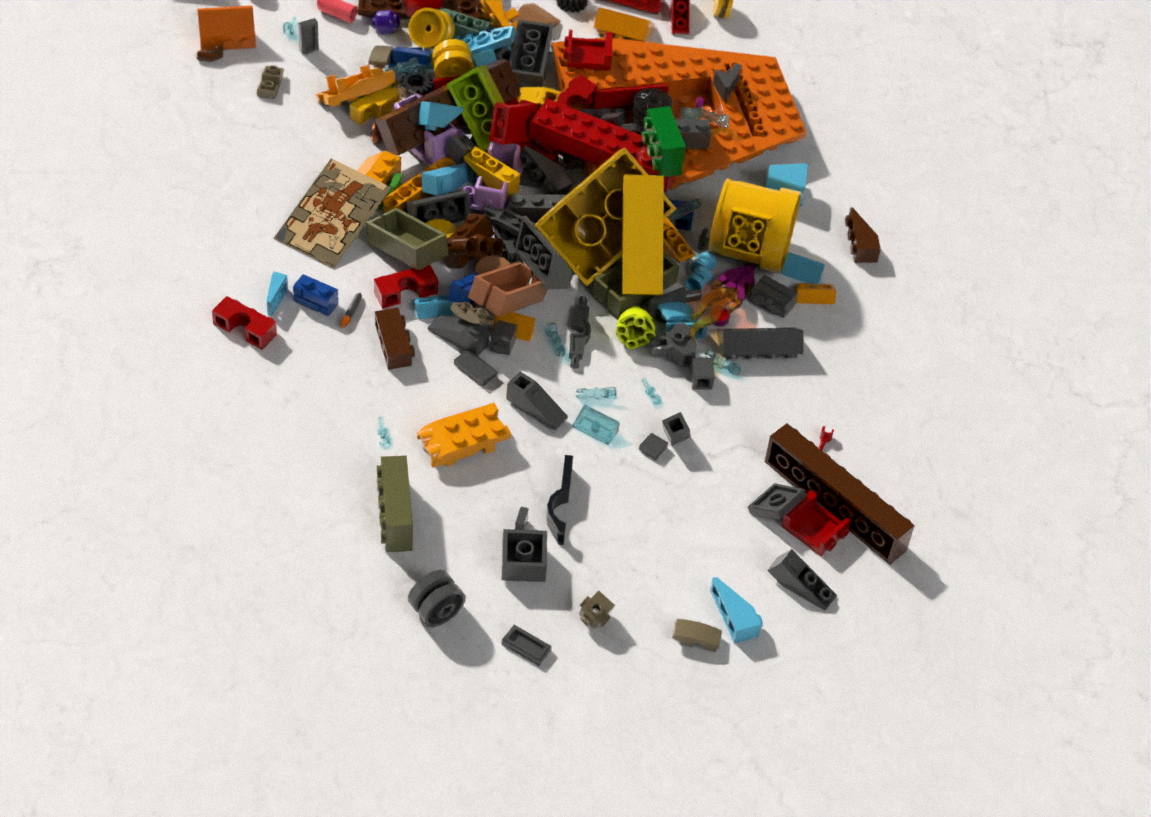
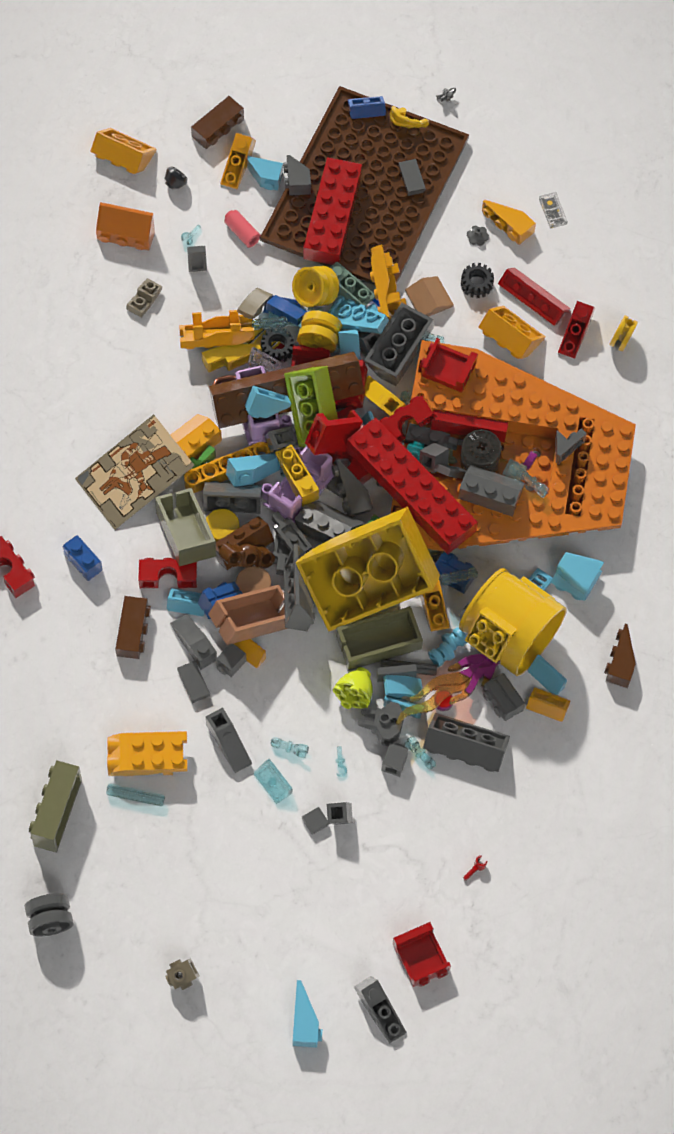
camera: 25 degrees right, 15 degrees up
(211, 56) = (106, 250): reddish brown arm -> none
(277, 290) = (50, 541): medium azure slope -> none
(351, 310) = (110, 581): dark grey piece -> none
(382, 431) = (82, 722): clear light blue hand -> none
(386, 22) = (281, 259): dark purple head -> none
(467, 476) = (135, 795): none -> clear light blue axle
(470, 314) = (205, 631): dark tan slope -> none
(522, 519) = (159, 860): dark grey tile -> none
(524, 555) = (144, 897): dark grey brick -> none
(526, 645) = (111, 983): dark grey tile -> none
(555, 339) = (278, 675): clear light blue piece -> none
(559, 497) = (208, 845): black piece -> none
(581, 338) = (300, 683): dark grey piece -> none
(642, 235) = (390, 606): yellow tile -> none
(664, 141) = (452, 512): green brick -> none
(694, 632) = (260, 1027): dark tan slope -> none
(777, 501) = (396, 920): dark grey tile -> none
(839, 493) = (454, 934): reddish brown brick -> none

